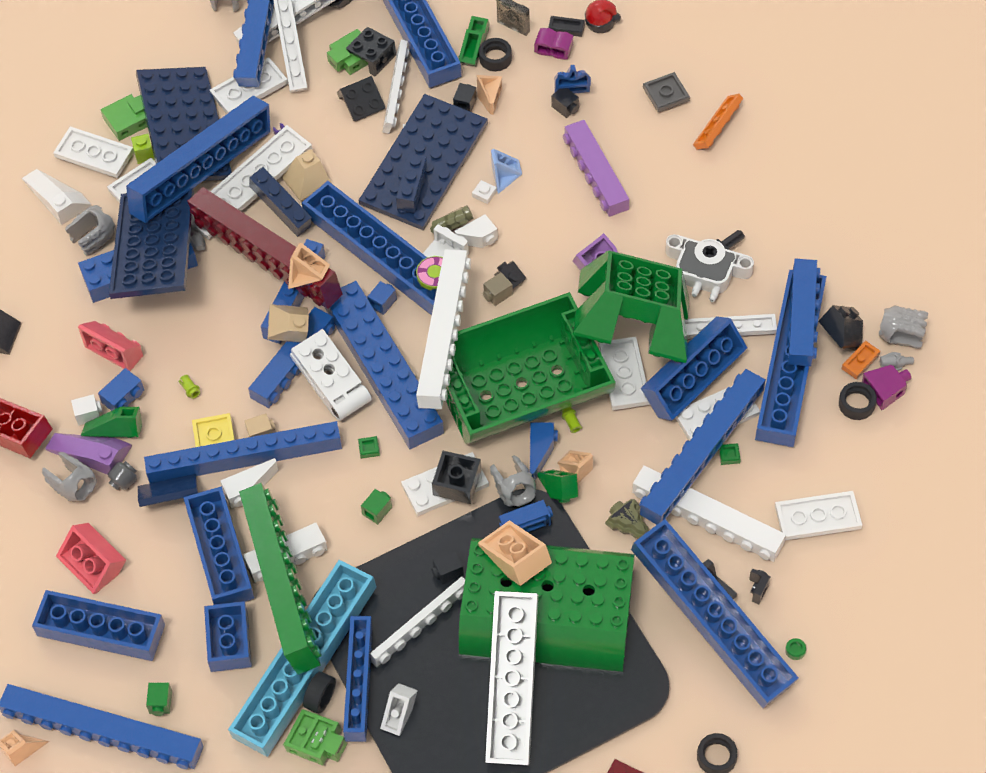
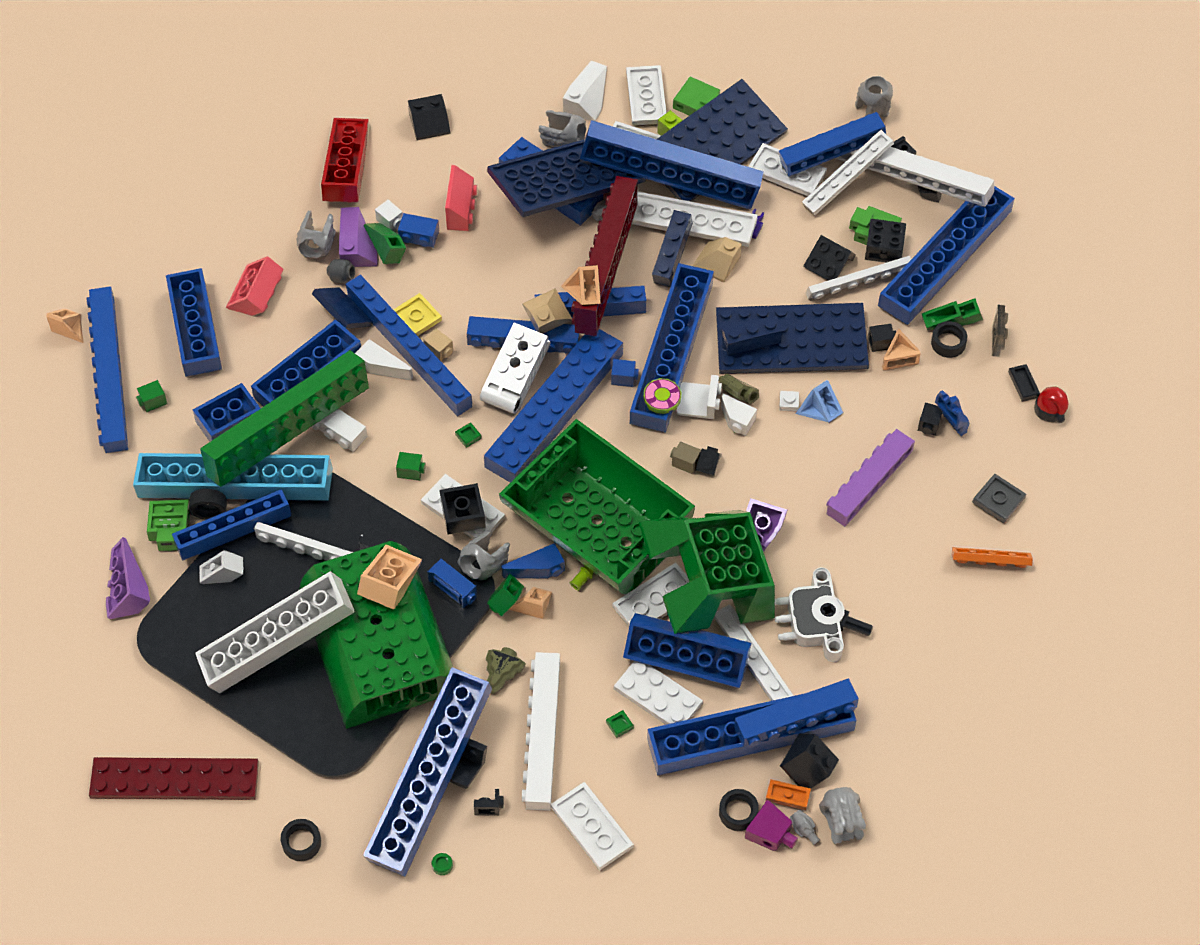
camera: 60 degrees right, 0 degrees up
(191, 389) = (451, 279): lime pin -> none
(443, 329) = (592, 421): white brick -> none
(553, 43) = (993, 380): magenta brick -> none
(702, 447) = (602, 691): blue brick -> none

